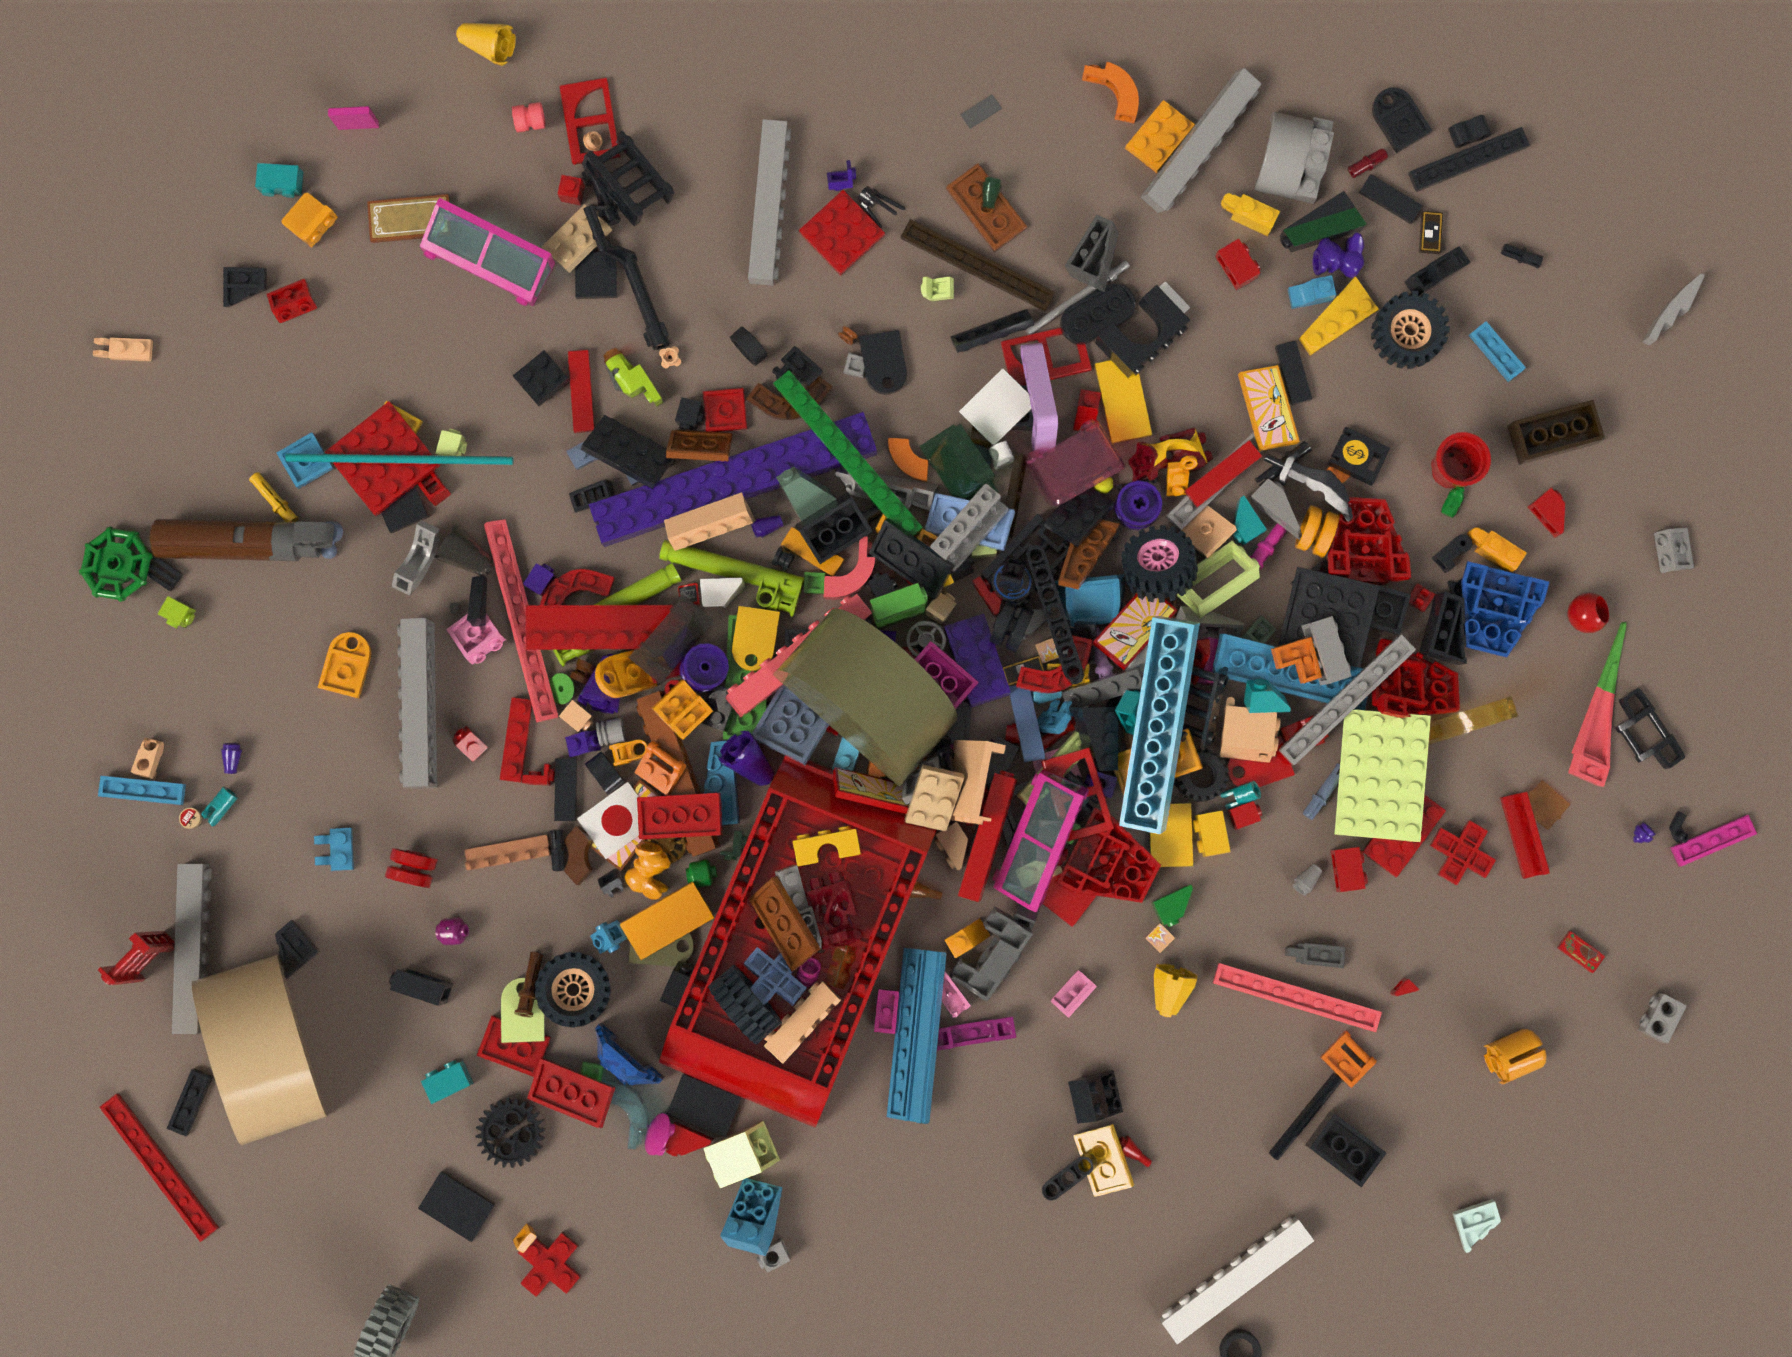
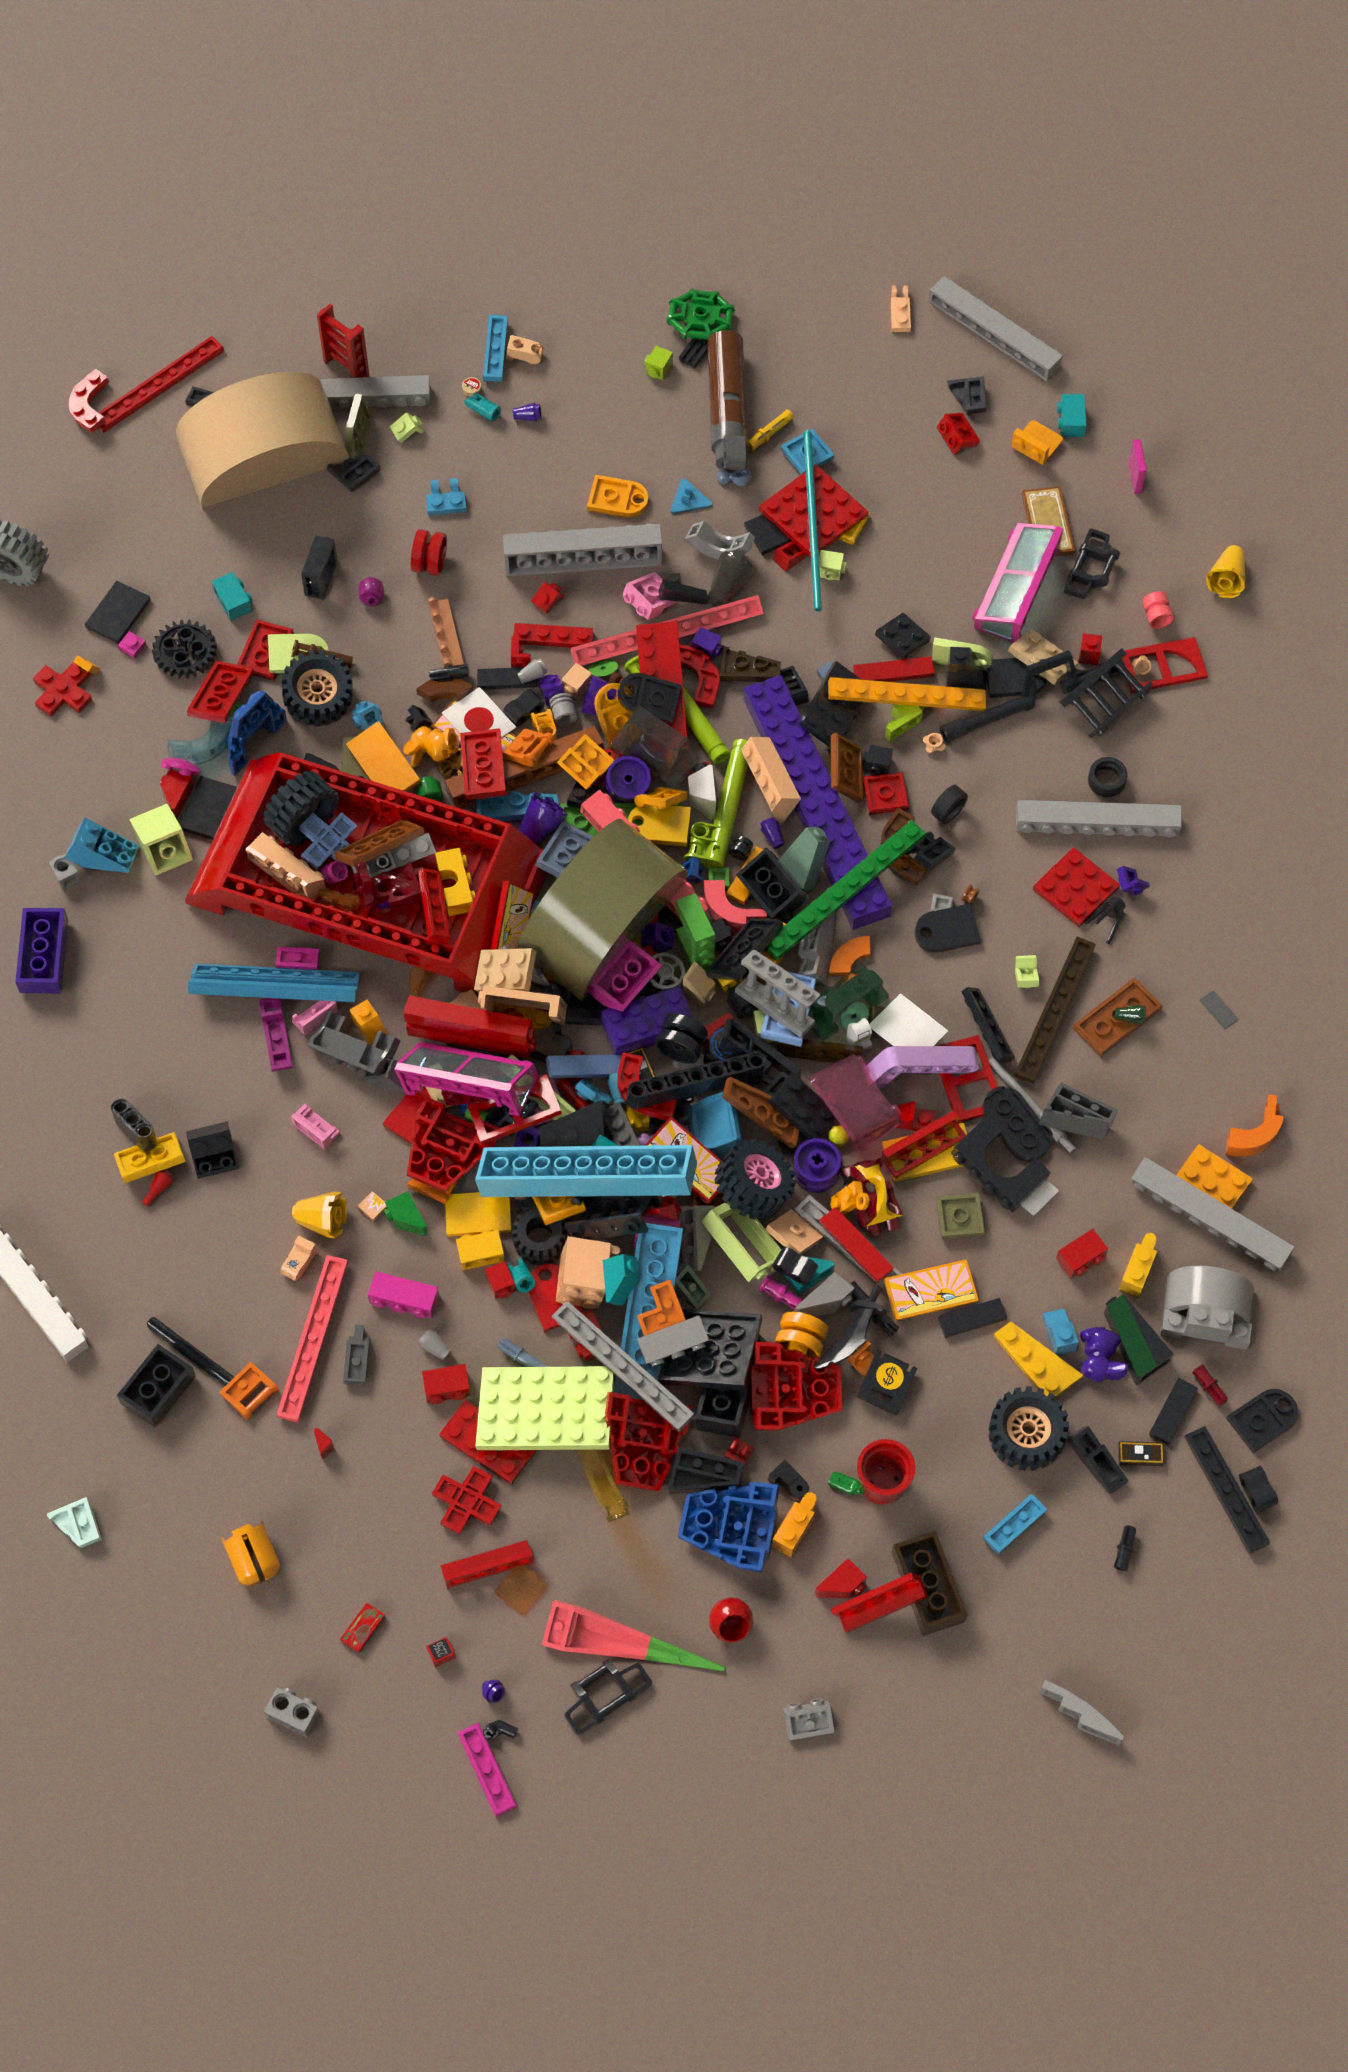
camera: 85 degrees right, 20 degrees down
(158, 250) = (995, 328): none -> light grey brick
(176, 1254) = (80, 401): none -> plate
(240, 890) = (406, 426): none -> yellowish green bracket
(241, 943) = (357, 426): none -> olive tile
(352, 590) = (688, 498): none -> dark azure piece
(448, 182) = (1104, 555): none -> black bar
(499, 1189) = (132, 644): none -> dark pink plate
(564, 762) = (534, 670): none -> light grey cone
(570, 540) = (747, 668): none -> dark brown wing
(574, 319) = (941, 651): none -> yellowish green tile
(593, 318) = (965, 669): none -> black slope
(613, 637) = (652, 694): none -> black tile
(621, 378) = (906, 694): none -> light orange plate
(720, 173) = (1112, 764): none -> black tyre
(731, 630) = (661, 798): none -> light orange plate
(807, 610) = (693, 868): none -> blue tile
(861, 867) = (434, 905): none -> red tile
(868, 1276) = (42, 950): none -> dark purple brick
(1116, 405) = (921, 1137): none -> red fence
(1192, 375) = (960, 1216): none -> olive plate
(1215, 1011) = (298, 1259): none -> light nougat leg
(1250, 531) = (795, 1266): none -> black axle
(1257, 909) = (403, 1295): none -> dark pink brick
(1577, 476) = (880, 1602): none -> red fence
(1605, 879) = (441, 1652): none -> slope

